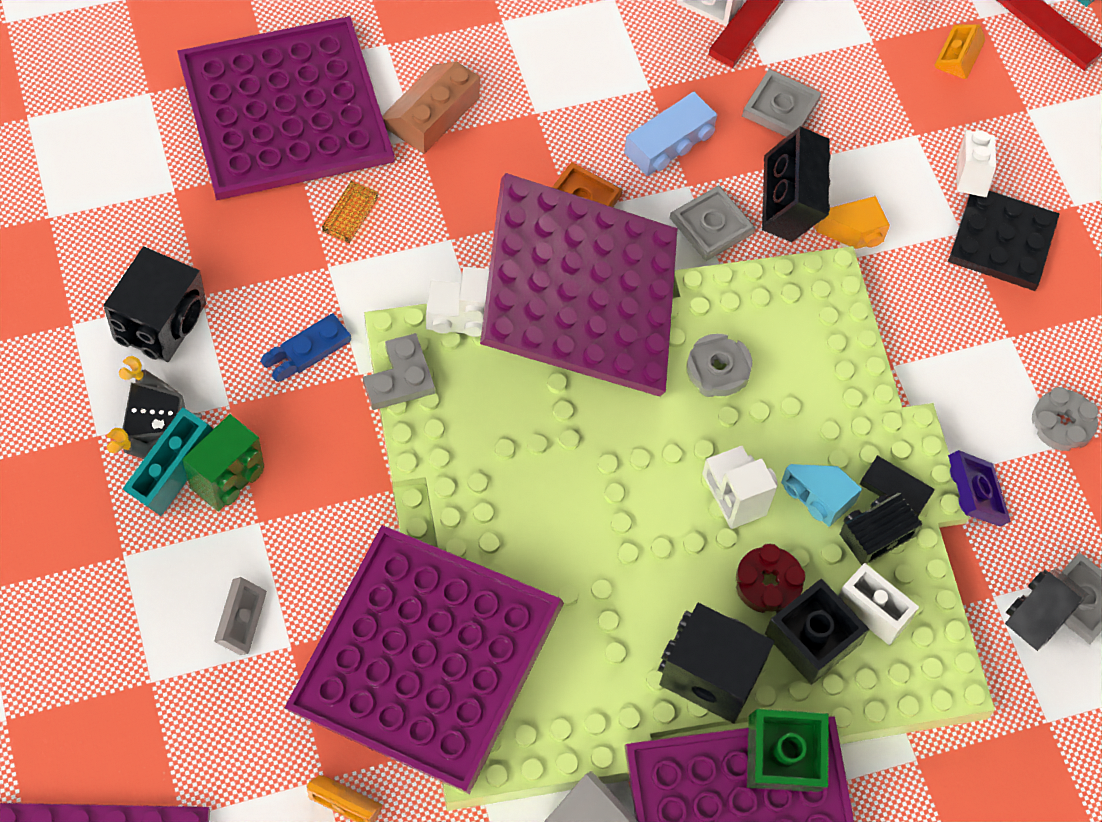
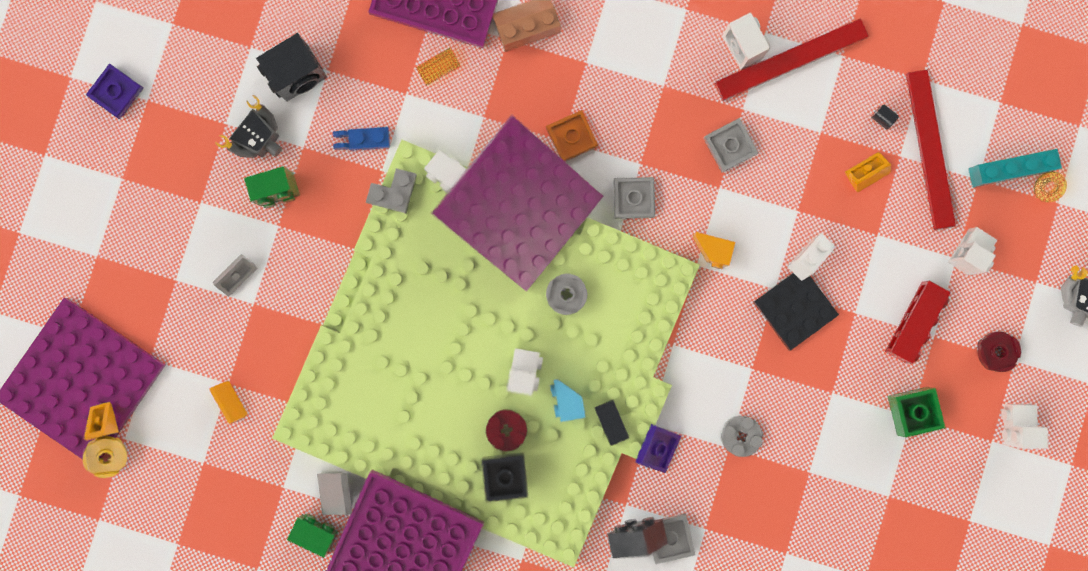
camera: 40 degrees right, 25 degrees up
(162, 470) = (232, 175): teal brick -> none
(425, 658) = (304, 360): magenta plate -> none
(670, 134) = (650, 127): light blue brick -> none
(714, 661) = (440, 461): black brick -> none
(788, 750) = (441, 531): green brick -> none
(796, 184) = (694, 207): black brick -> none
(878, 603) = (547, 483): white brick -> none
(880, 528) = (582, 441): black brick -> none

